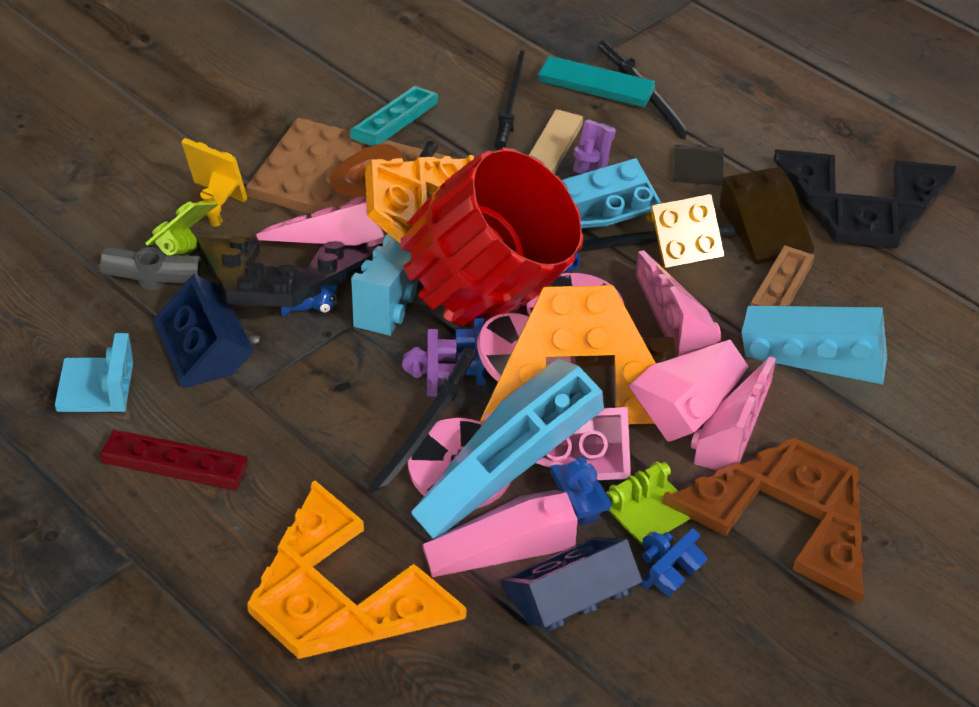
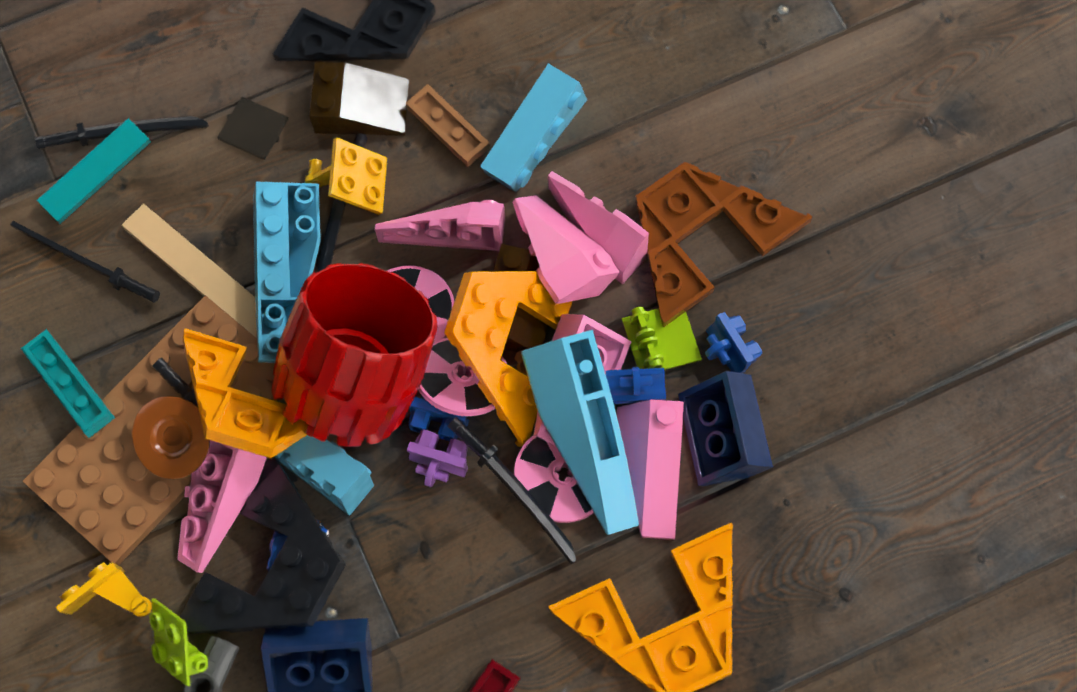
camera: 65 degrees left, 25 degrees up
(593, 147) = (212, 211): medium lavender hips -> none

